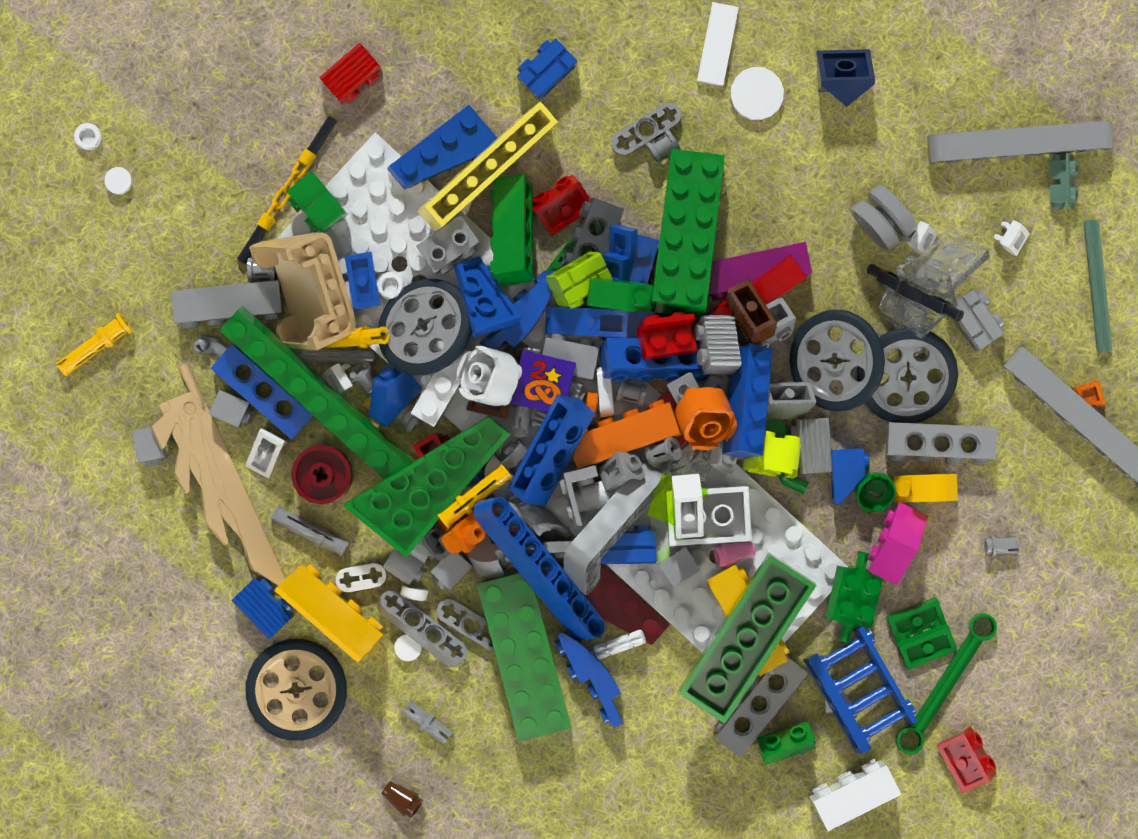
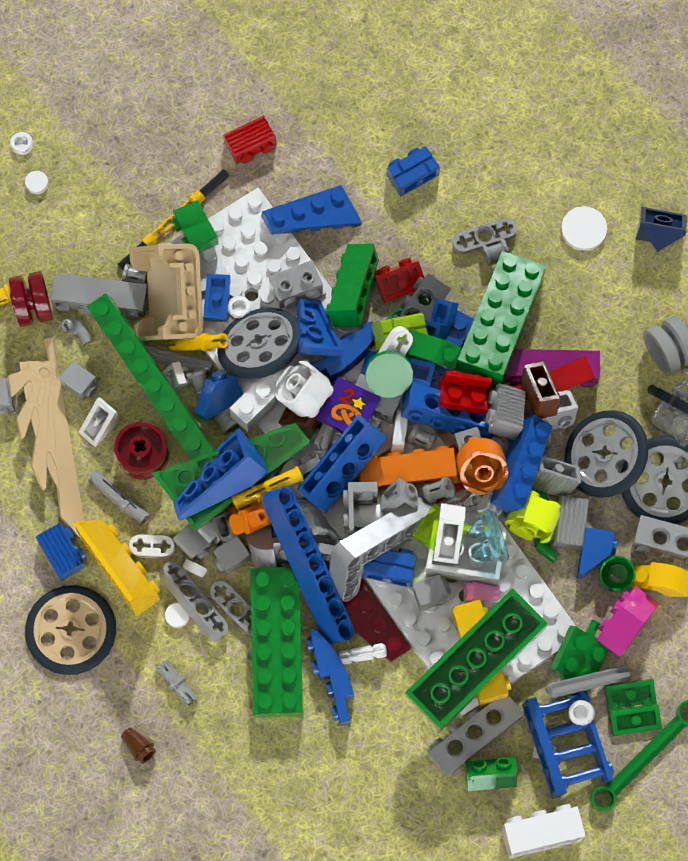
camera: 15 degrees right, 15 degrees down
(147, 330) = (29, 299): none -> dark red wheel
(227, 368) = (93, 339): blue brick -> none
(430, 490) = (230, 472): none -> blue wedge
(487, 166) = (344, 230): light yellow brick -> none
(578, 309) = (400, 346): none -> white beam
(579, 336) = (389, 374): none -> tile
(591, 400) = (388, 433): orange tile -> none
(717, 44) = (559, 183): white tile -> none
(740, 508) = (494, 547): none -> clear light blue tile
(869, 622) = (587, 681): none -> light grey axle
(869, 658) = (581, 712): none -> white tile
(967, 760) = (651, 828): bracket -> none

